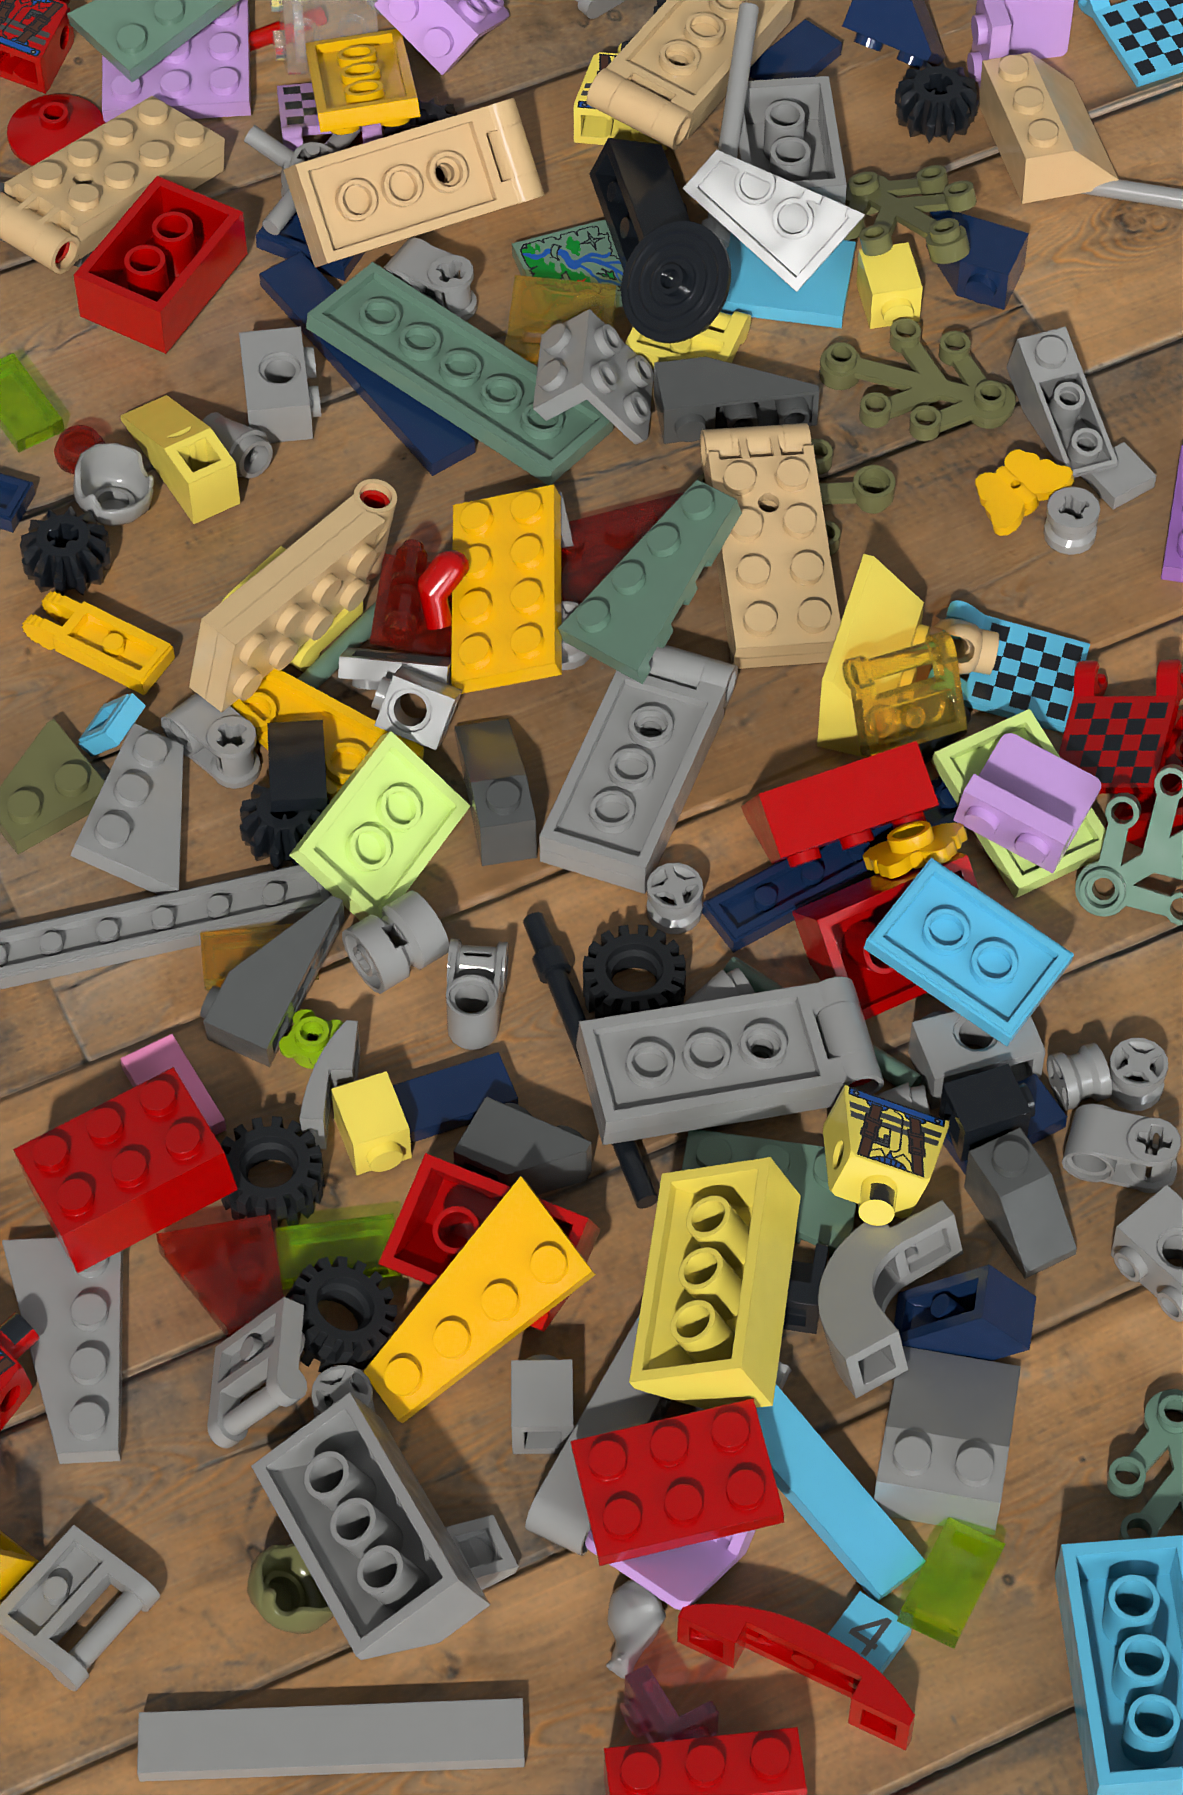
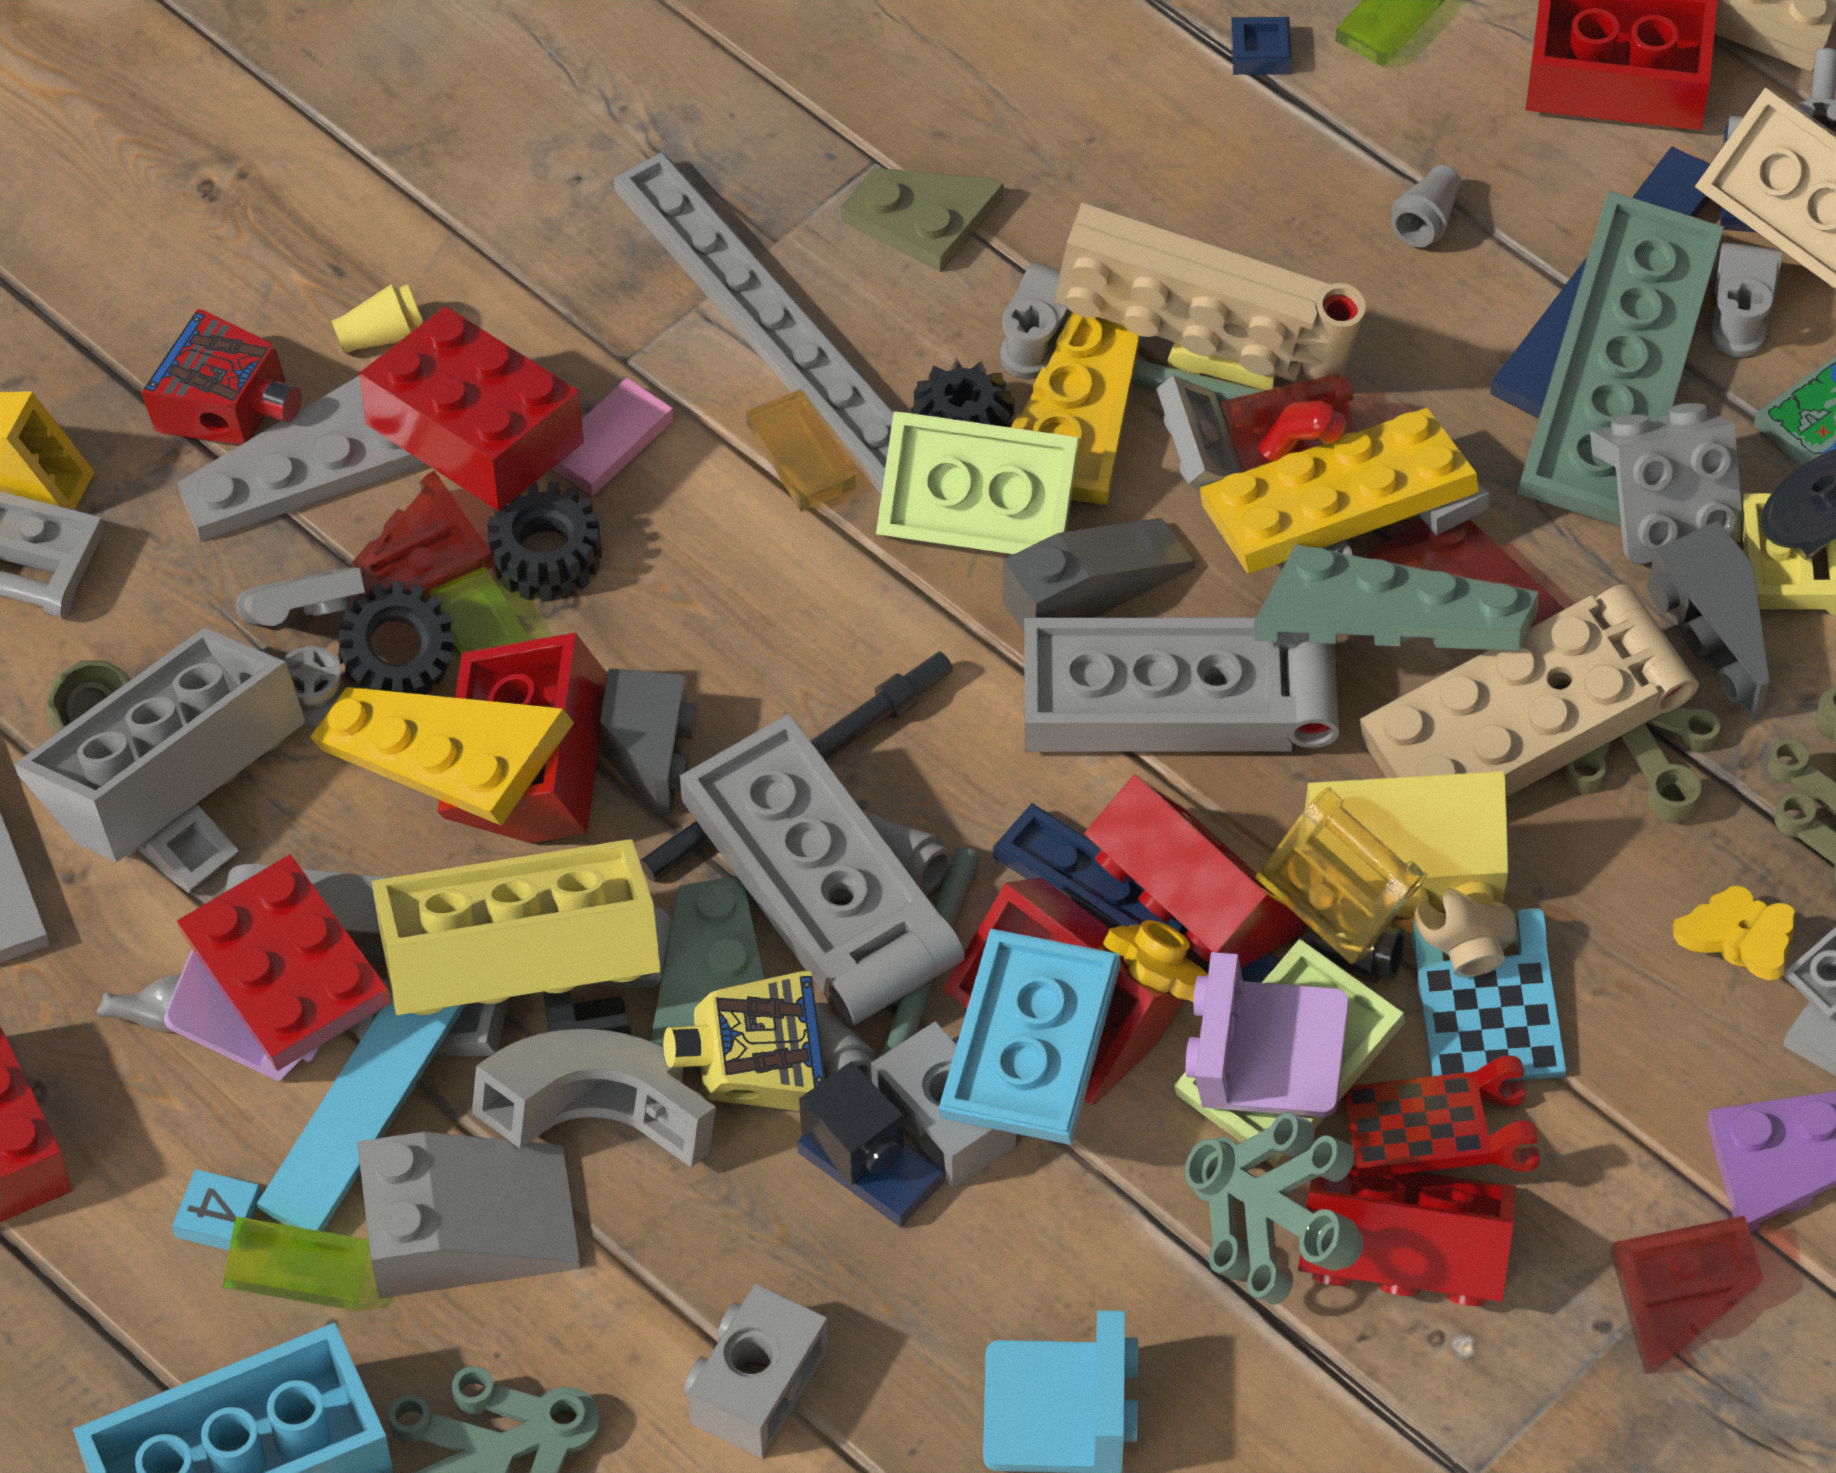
camera: 70 degrees right, 0 degrees up
(65, 552) = (1211, 115): black gear -> none
(72, 443) = (1354, 84): clear red plate -> none
(100, 642) = (1118, 173): yellow hinge -> none
(111, 724) = (1014, 227): medium azure tile -> none
(112, 484) = (1312, 118): light grey hair -> none
(138, 814) = (918, 286): light grey wing -> none
(185, 457) = (1379, 164): light yellow slope -> none
(270, 986) = (741, 460): dark grey slope -> none
(277, 383) = (1522, 210): light grey brick -> none
(297, 766) = (1016, 379): black slope -> none
(304, 1025) = (720, 538): lime plate -> none
(334, 1068) = (684, 550): light grey slope -> none
(371, 1124) = (631, 602): light yellow brick -> none
(389, 945) = (844, 543): light grey wheel -> none
(439, 700) = (1146, 465): light grey brick -> none
(453, 1095) = (712, 669): dark blue tile -> none
(475, 984) = (831, 636): light grey piece -> none
(541, 1404) = (367, 839): light grey brick -> none
(546, 301) = (1762, 418): clear yellow plate -> none
(633, 952) = (909, 740): black tyre -> none
(652, 1715) = (56, 1050): clear pink bracket -> none
(683, 886) = (1028, 759): light grey wheel -> none
(727, 1629) = (141, 1223): red slope -> none
(967, 1315) = (606, 1190): dark blue slope -> none
(1020, 1202) = (768, 1197): dark grey slope -> none
(1062, 529) = (1728, 1016): light grey wheel -> none
(1079, 1076) = (953, 1211): light grey wheel -> none
(1118, 1147) = (877, 1280): light grey piece -> none
(1137, 1059) = (983, 1251): light grey wheel -> none

